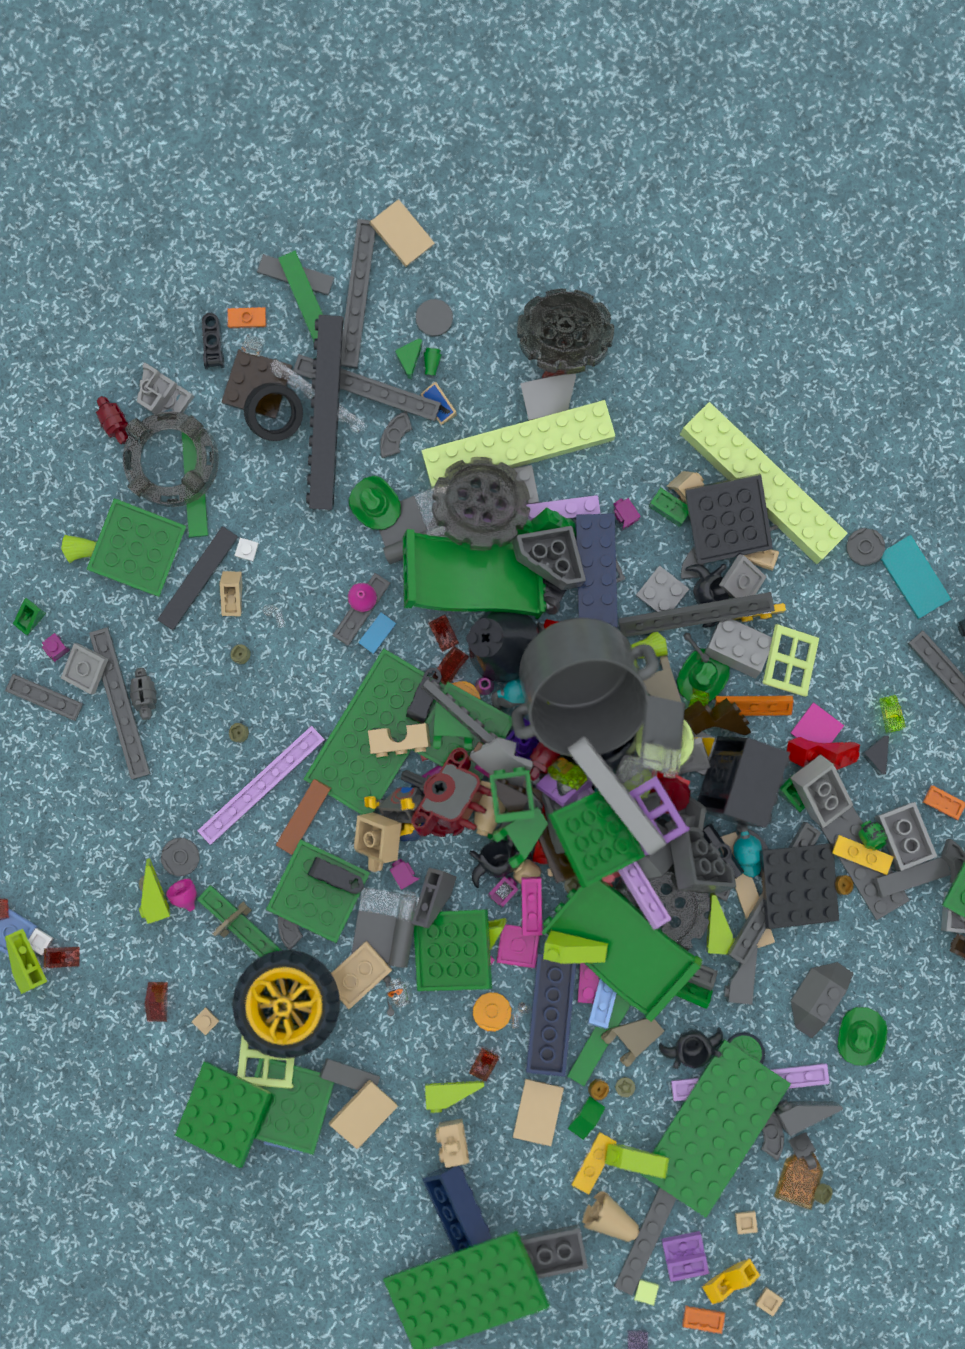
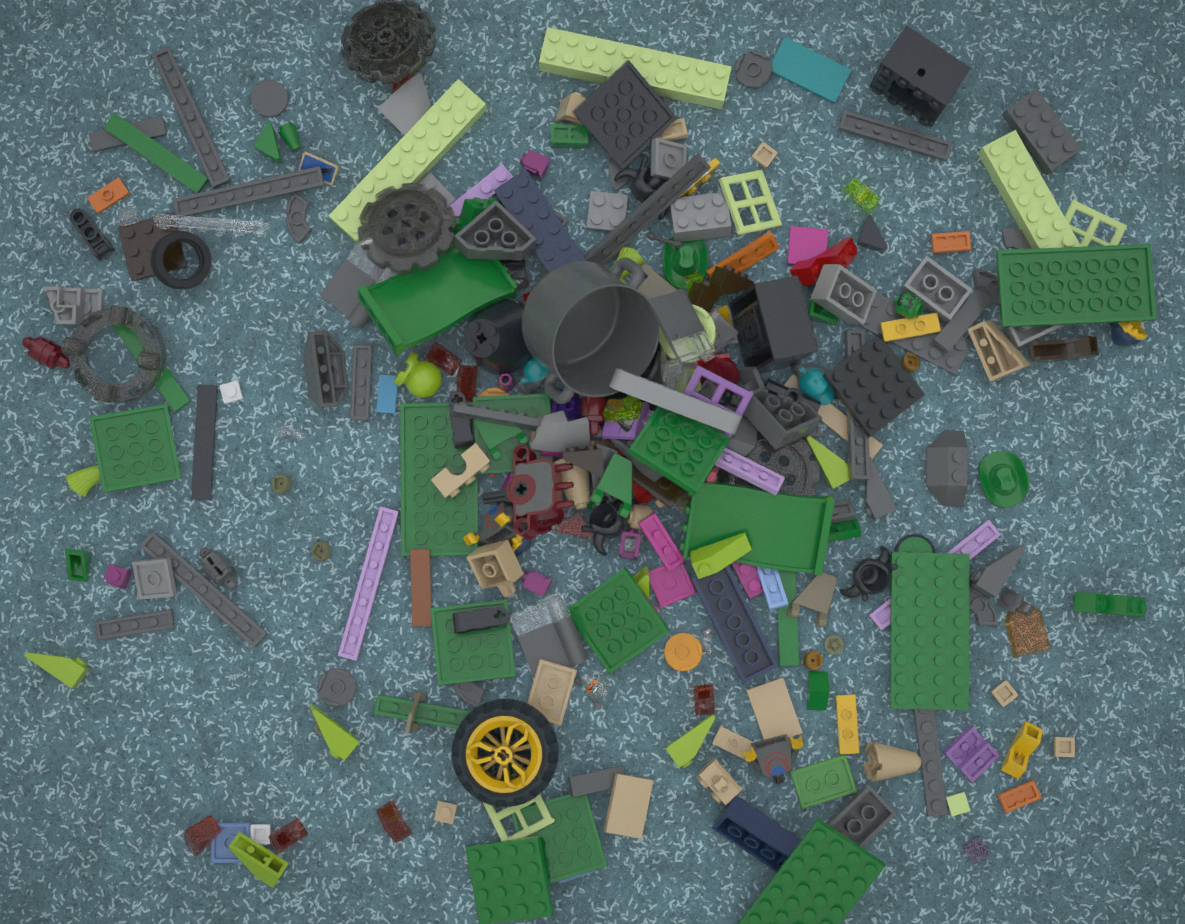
camera: 30 degrees left, 0 degrees up
(182, 894) = (359, 717): dark pink helmet -> none
(231, 593) = (241, 437): tan arch -> none
(325, 412) = (225, 231): black brick -> none
(336, 577) = (325, 369): none -> dark grey wedge
(362, 597) = (355, 371): dark pink helmet -> none
(375, 503) = (317, 285): green hat -> none
(402, 233) = (197, 43): tan tile -> none
(413, 636) = (420, 377): none -> lime tile
(433, 897) = (573, 585): dark grey slope -> none
(465, 845) = (573, 527): none -> clear red slope
(486, 1117) = (731, 742): none -> tan plate
(512, 816) = (580, 432): green window -> none
(513, 1151) = (774, 756): none -> dark grey torso
(543, 1199) = (823, 781): none -> bright green tile
(636, 1160) = (881, 698): lime slope -> none
(823, 1193) = (1052, 629): olive tile -> none
(828, 626) = (764, 155): none -> tan plate
(886, 1204) = (1109, 604): none -> green arch
(924, 922) = (996, 351): none -> tan wedge

